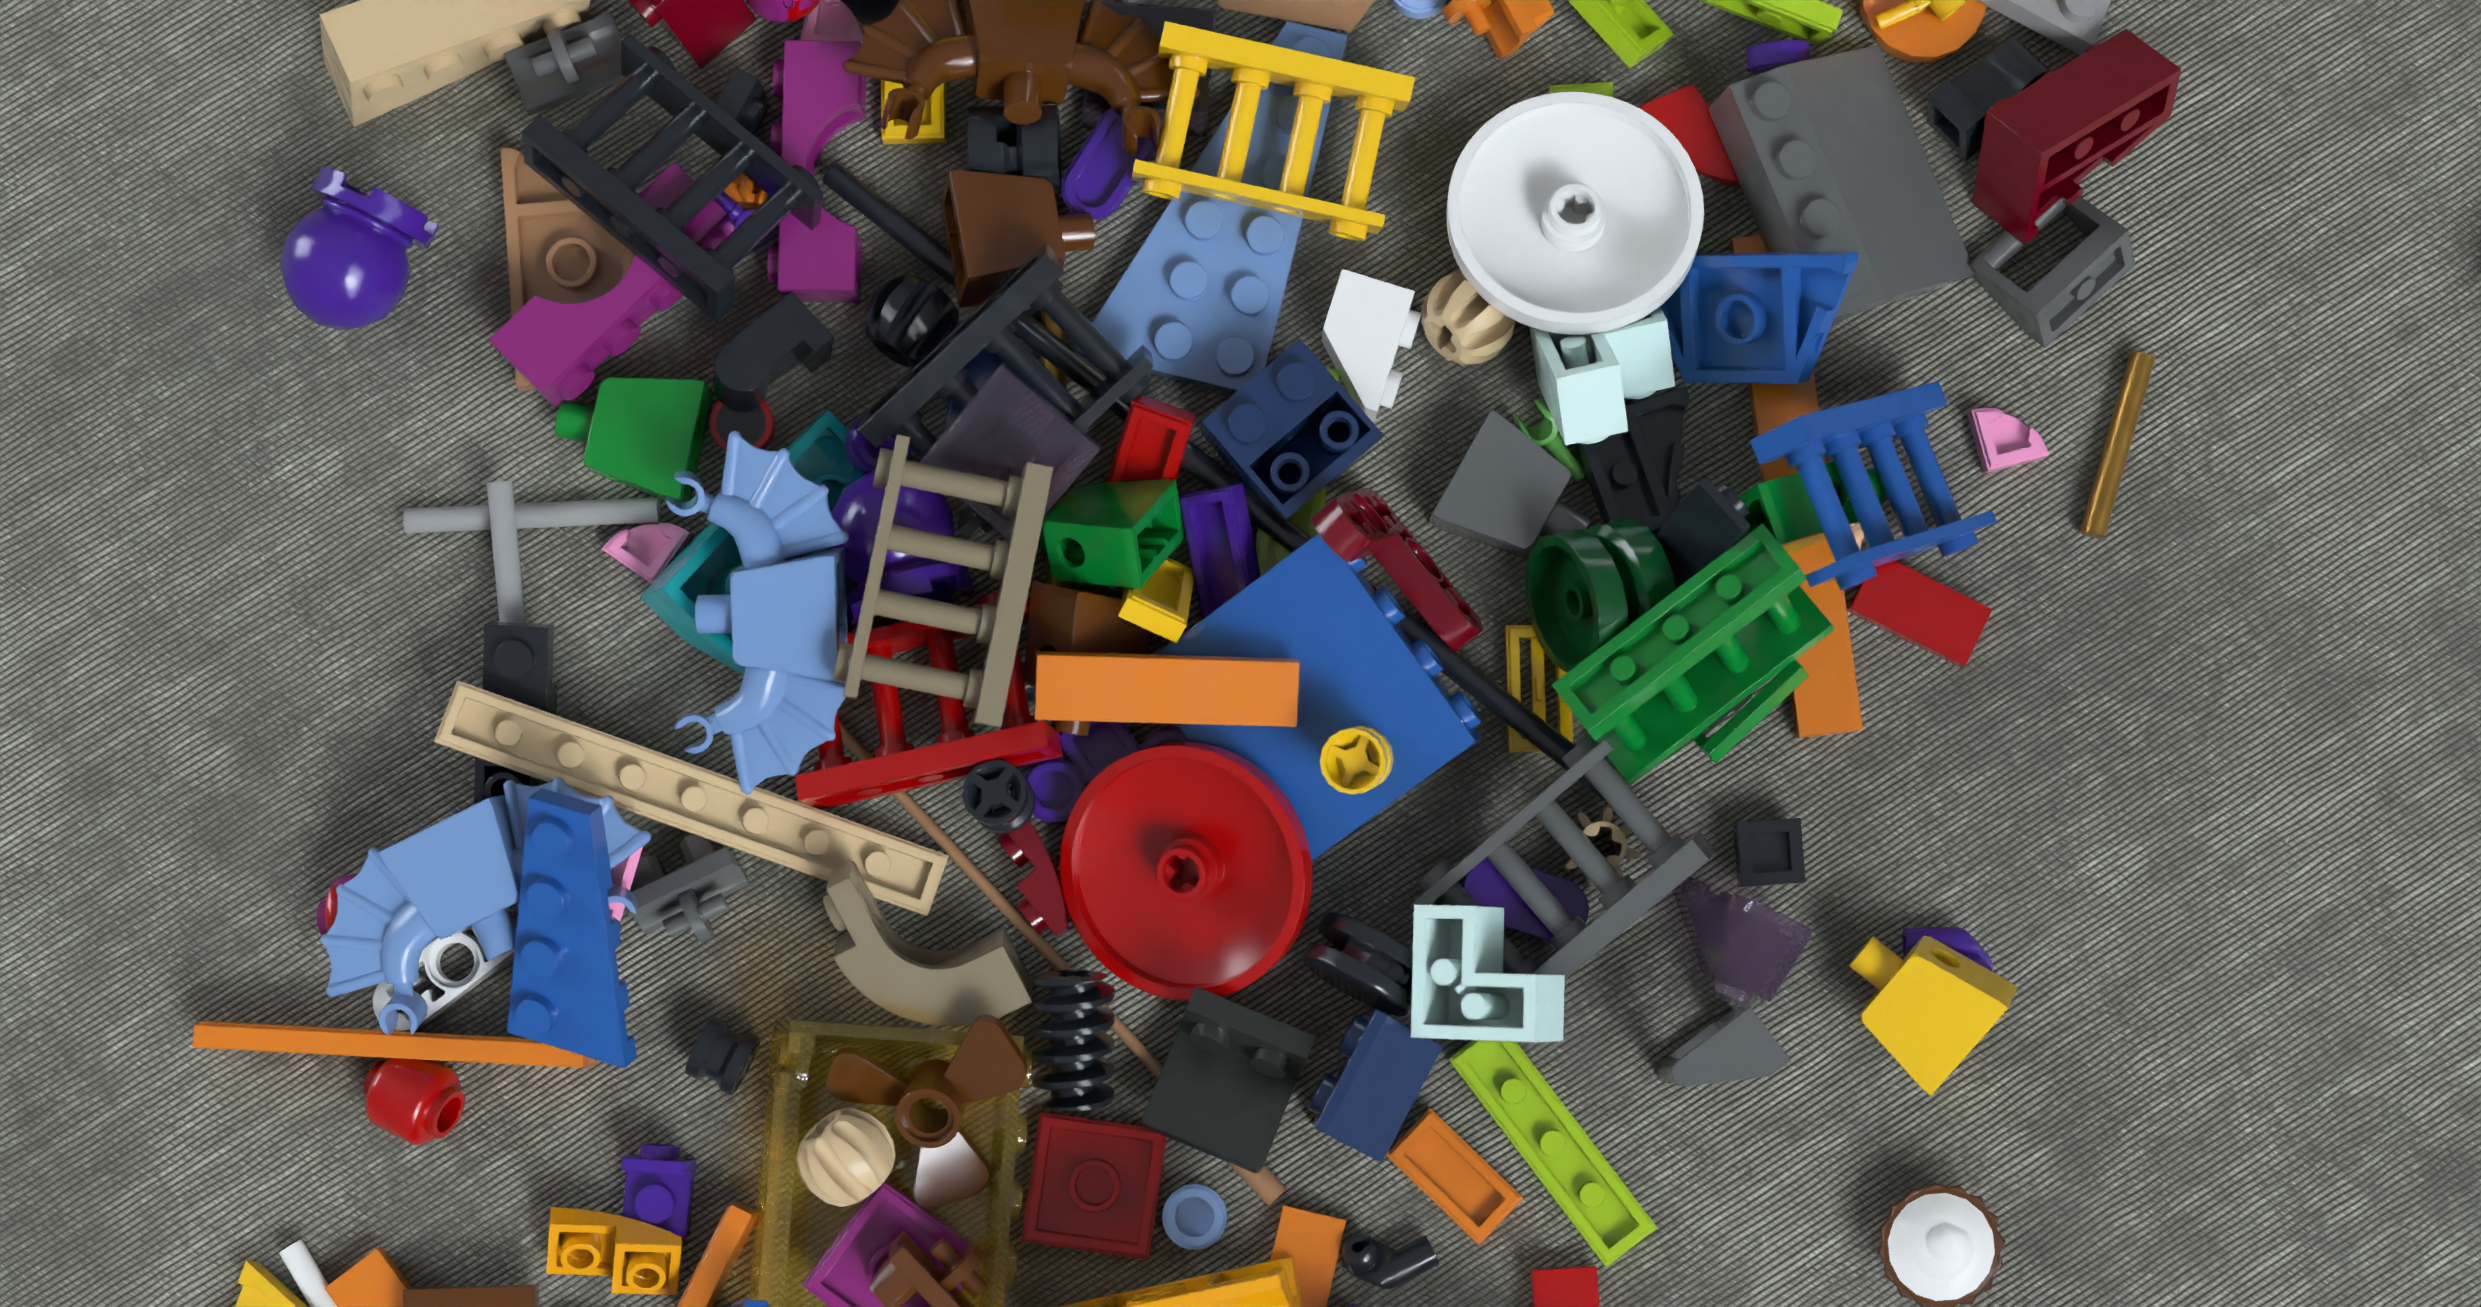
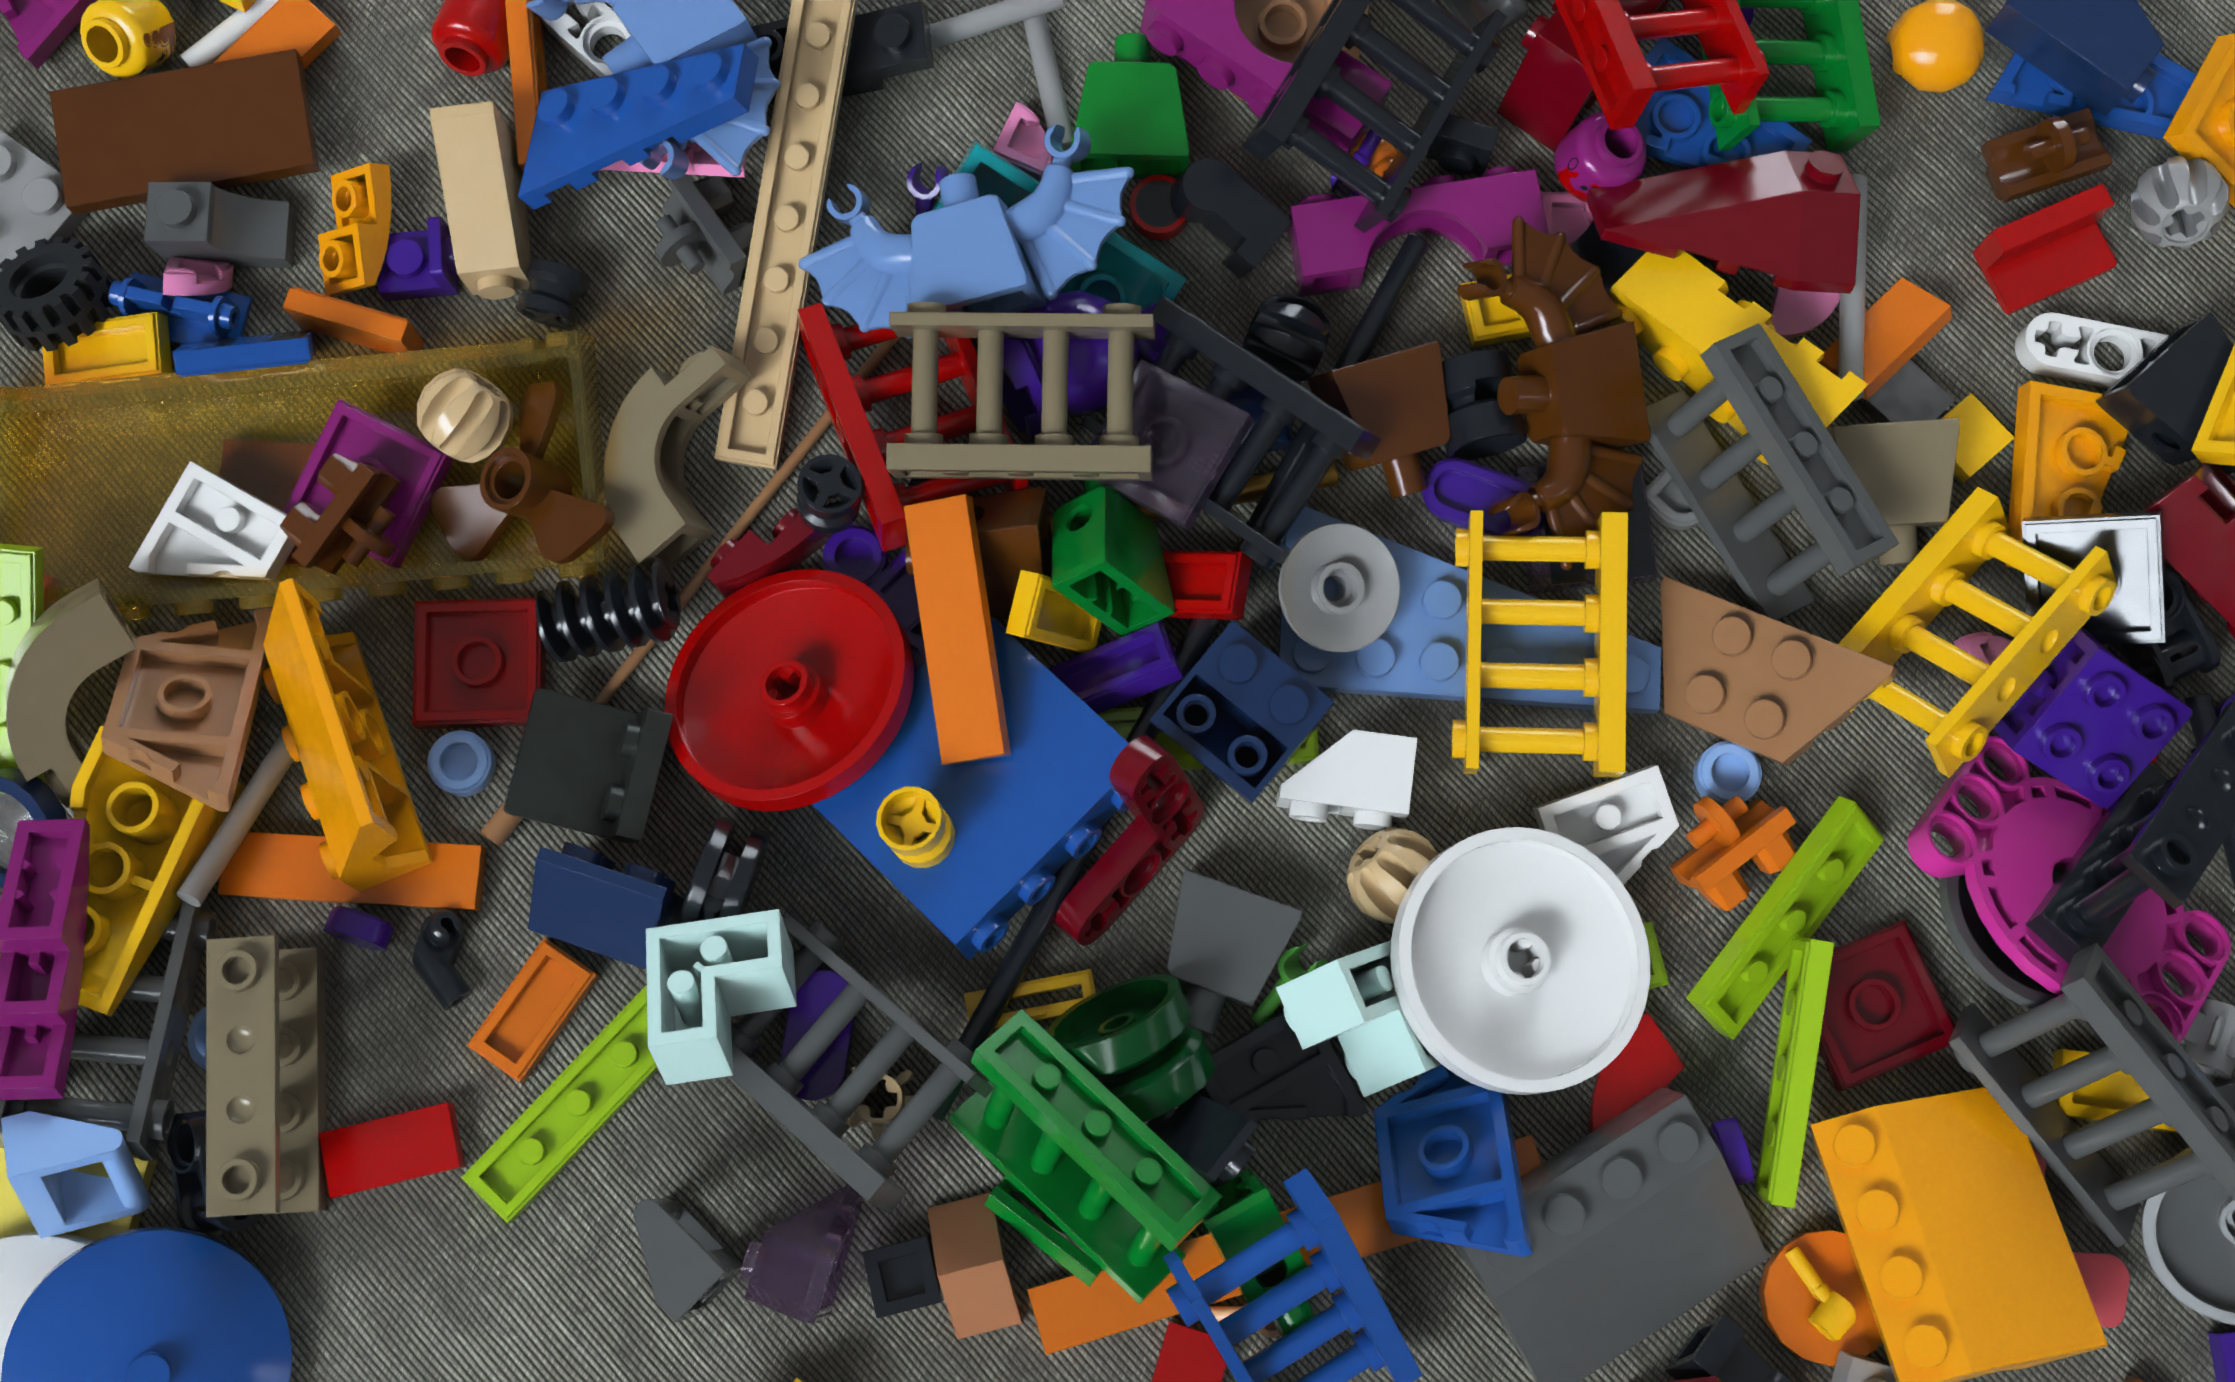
camera: 80 degrees right, 5 degrees down
(614, 1110) = (481, 198): none -> tan slope
(692, 660) = (924, 196): none -> dark purple hand
(1186, 291) = (1365, 582): none -> light grey dish
(1448, 101) = (1615, 819): none -> white wing
(1767, 784) = (973, 1267): none -> nougat slope

